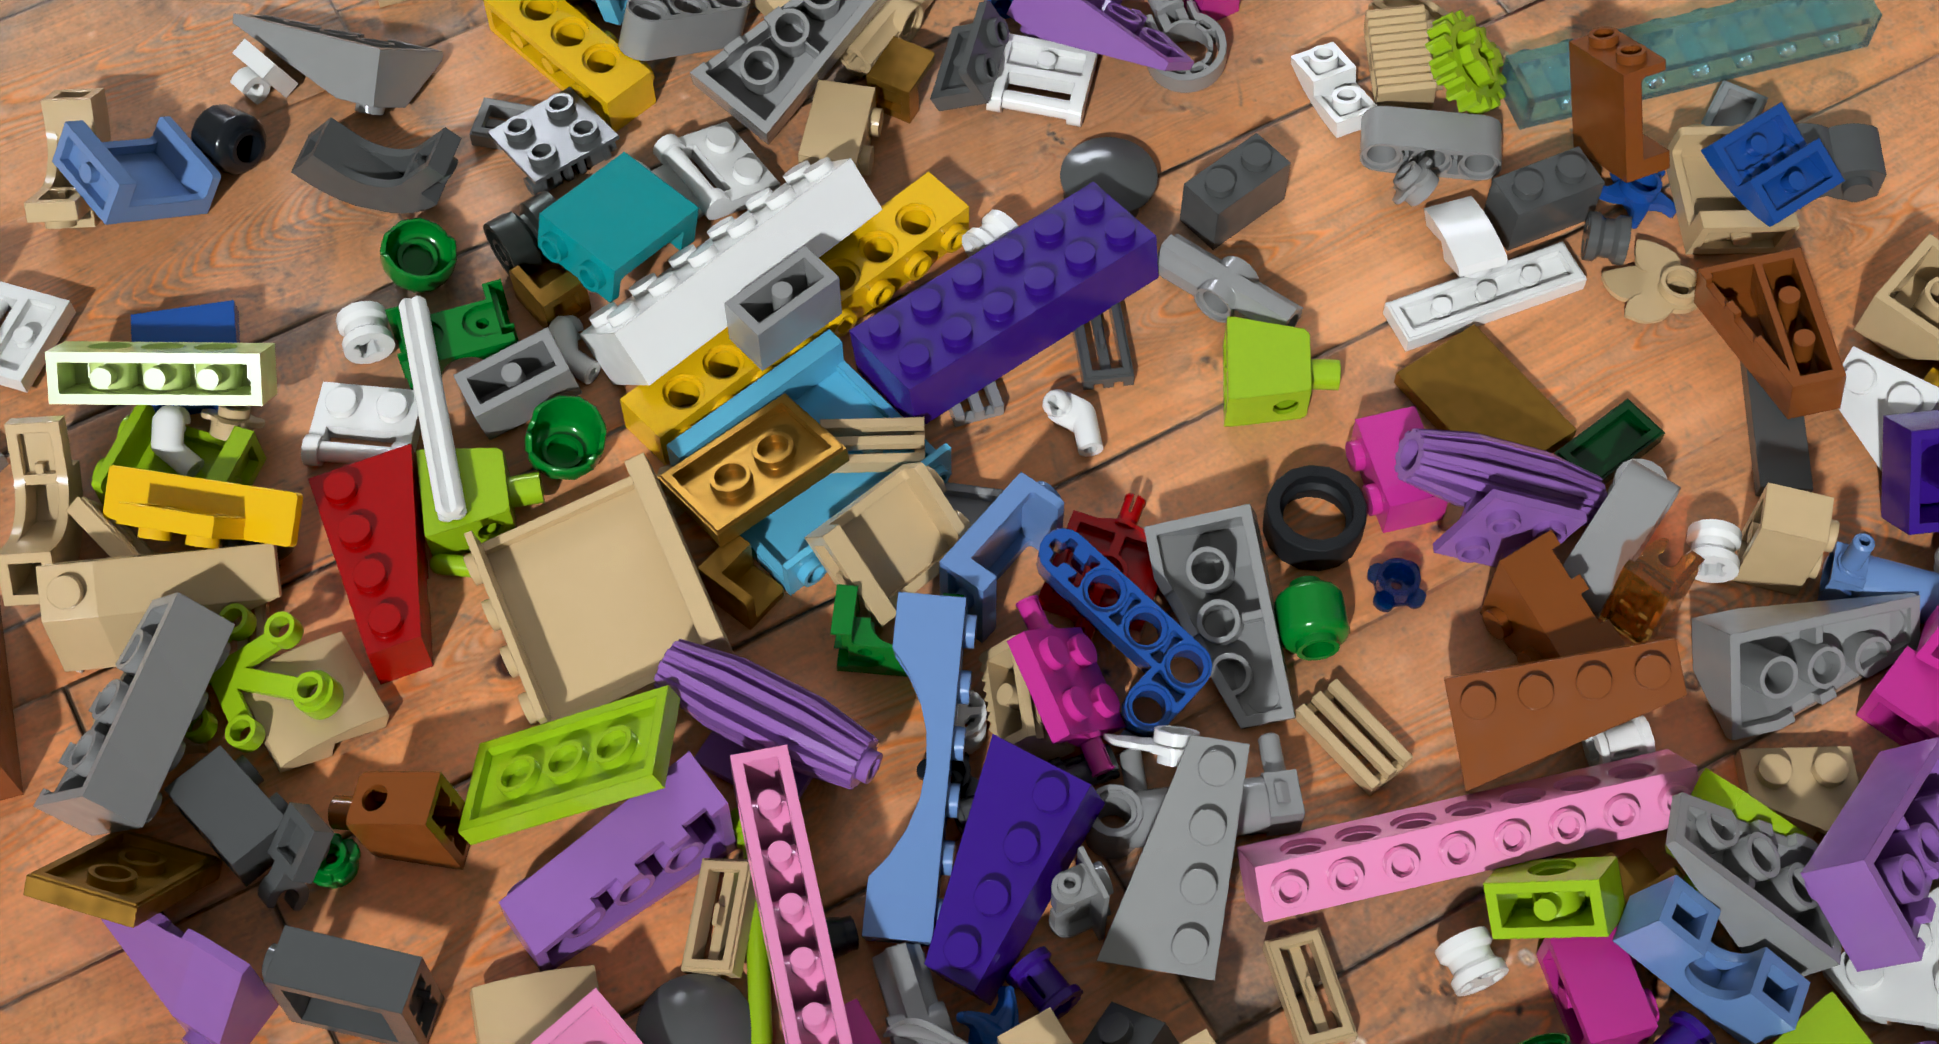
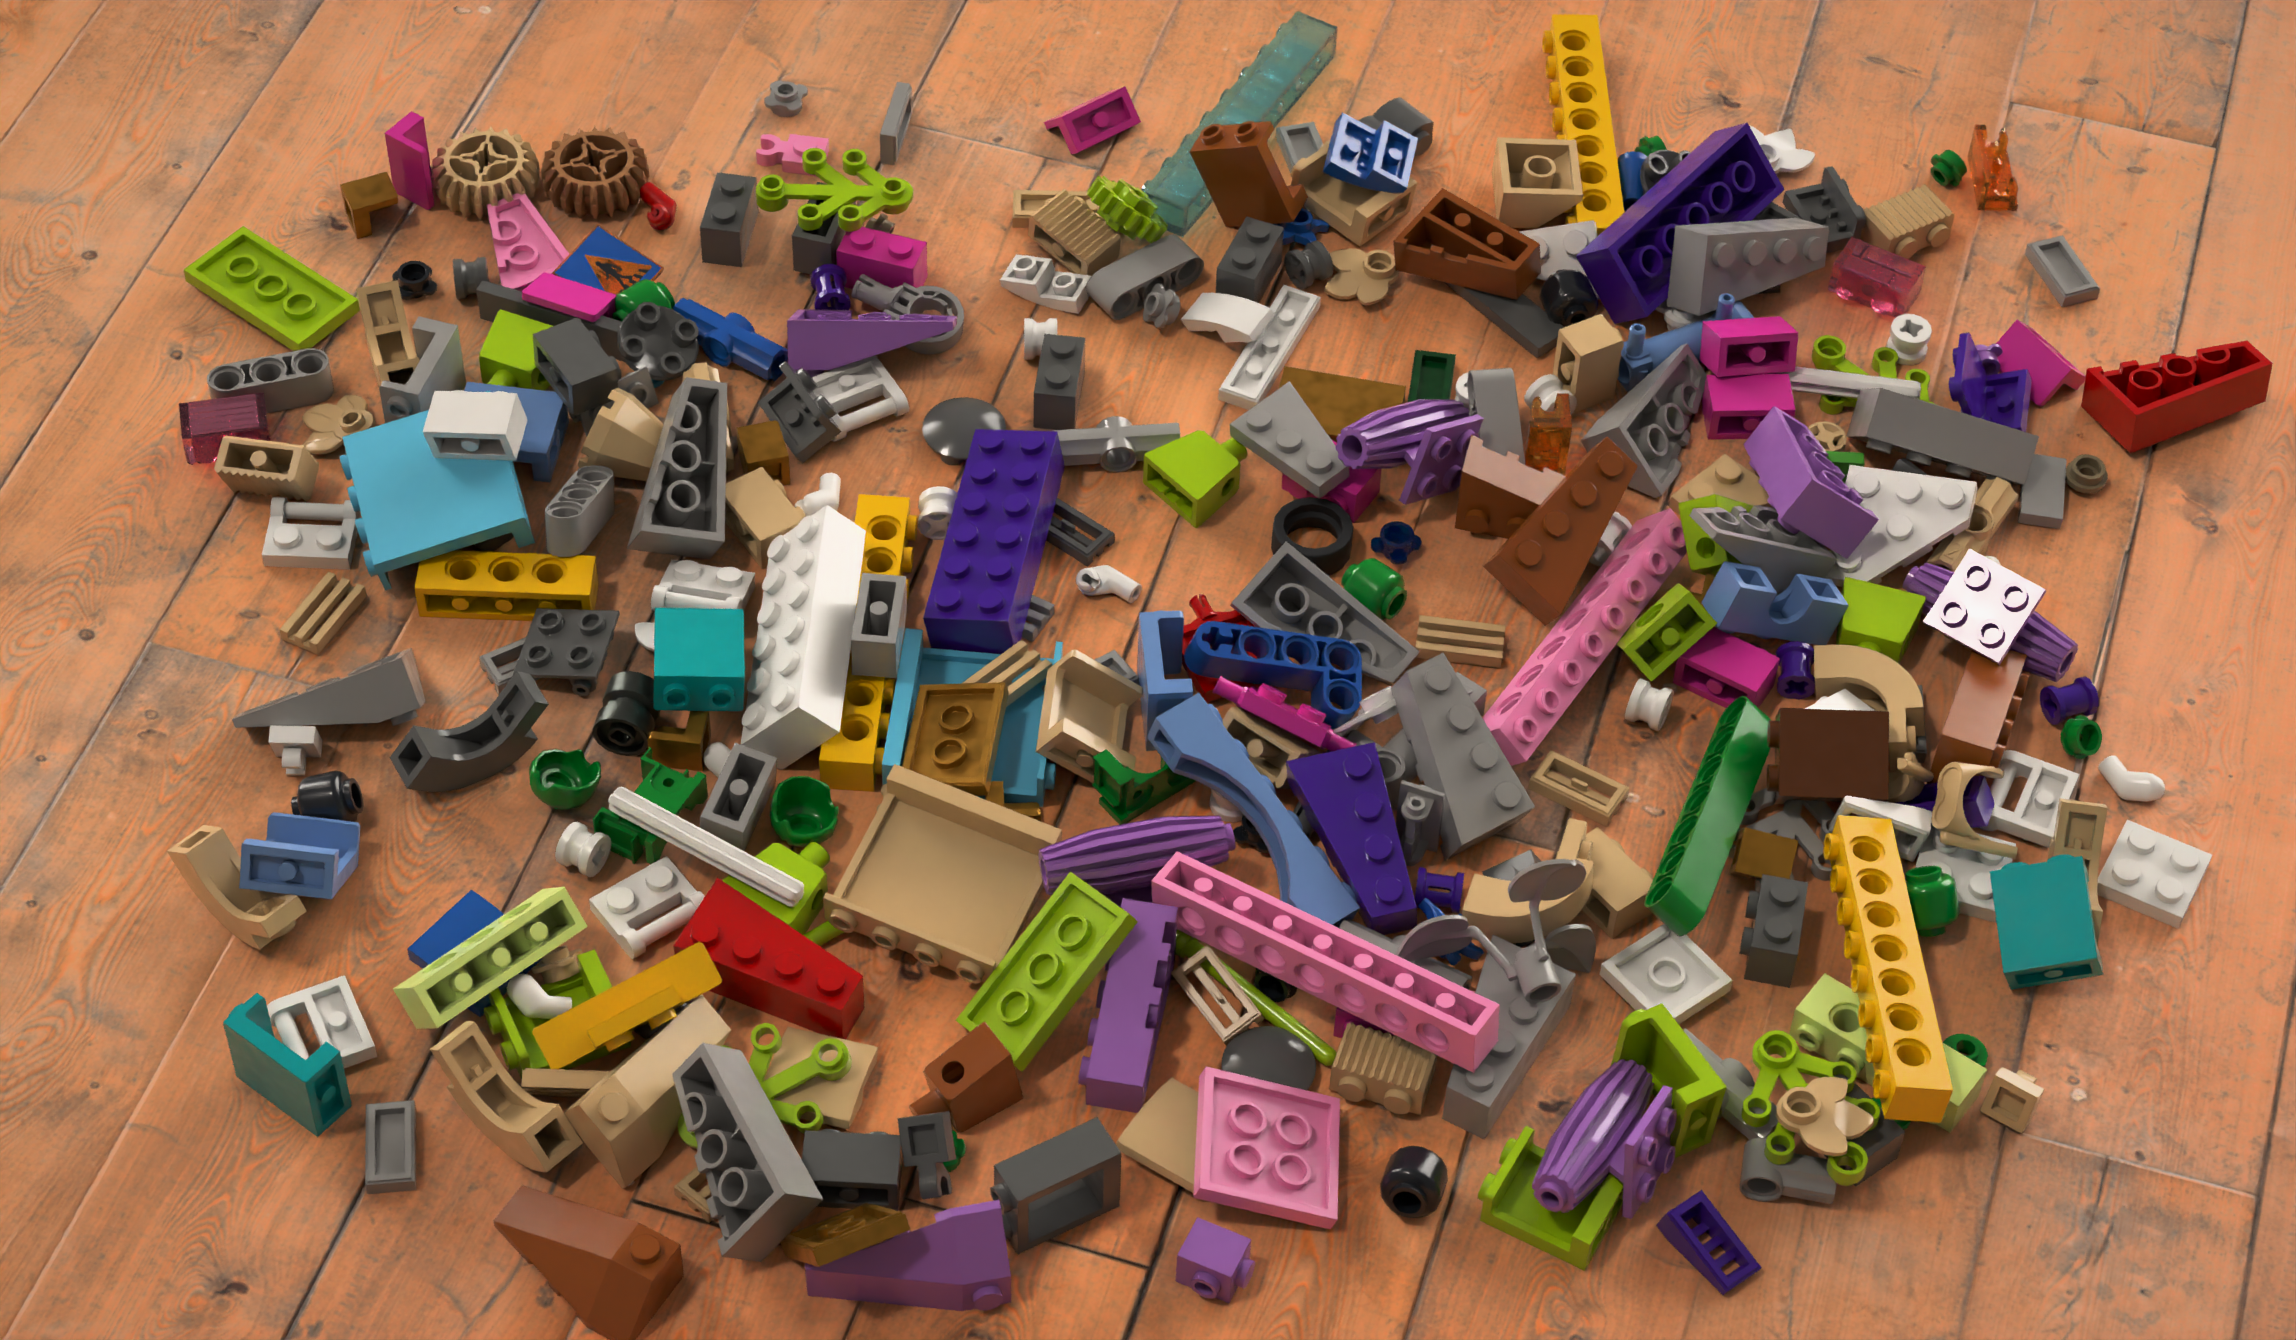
camera: 45 degrees left, 10 degrees down
(911, 159) = (827, 495): none -> white arm
(1276, 134) = (1034, 335): none -> white wheel
(1379, 402) = (1291, 440): none -> light grey wing
(1843, 456) = (1568, 297): none -> black head

